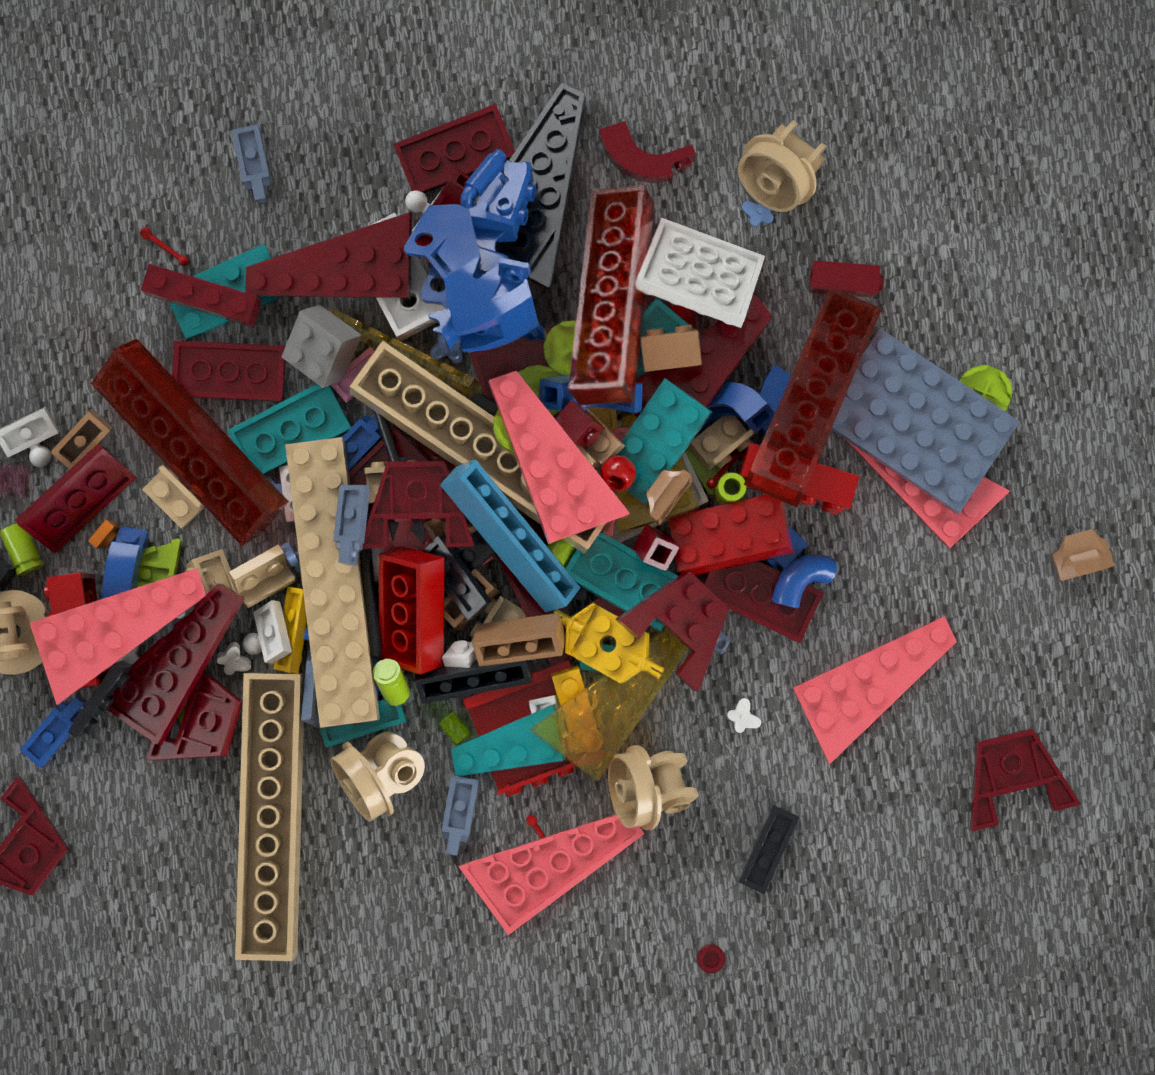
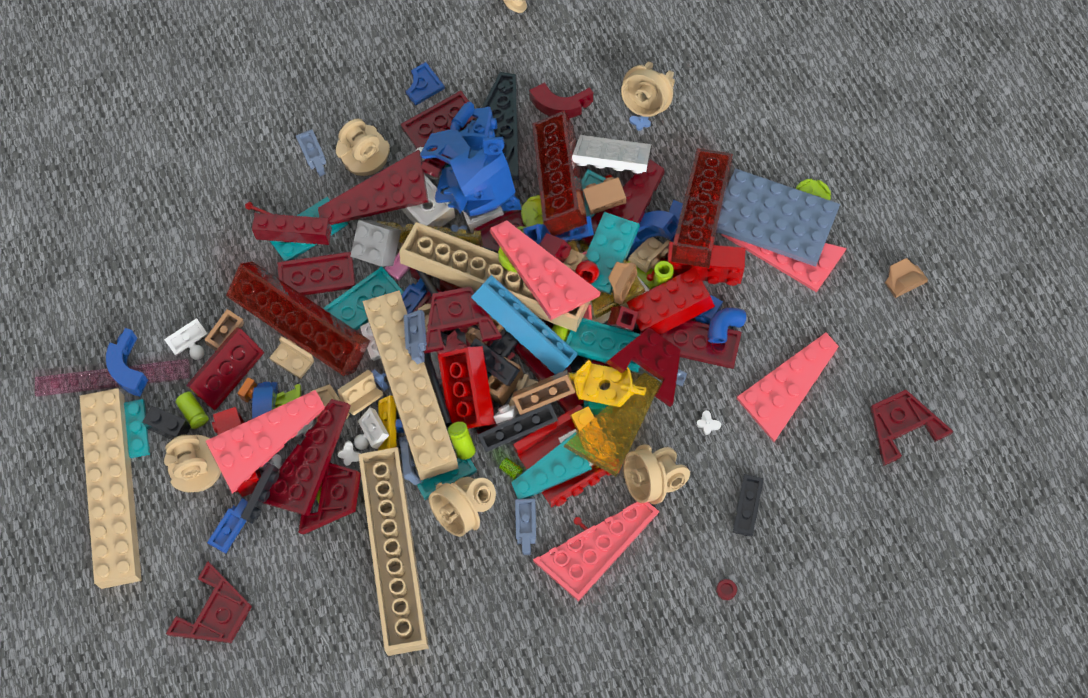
camera: 10 degrees left, 20 degrees down
(328, 177) = (362, 148): none -> tan piece
(443, 76) = (424, 84): none -> blue tile
(850, 278) = (710, 141): dark red brick -> none

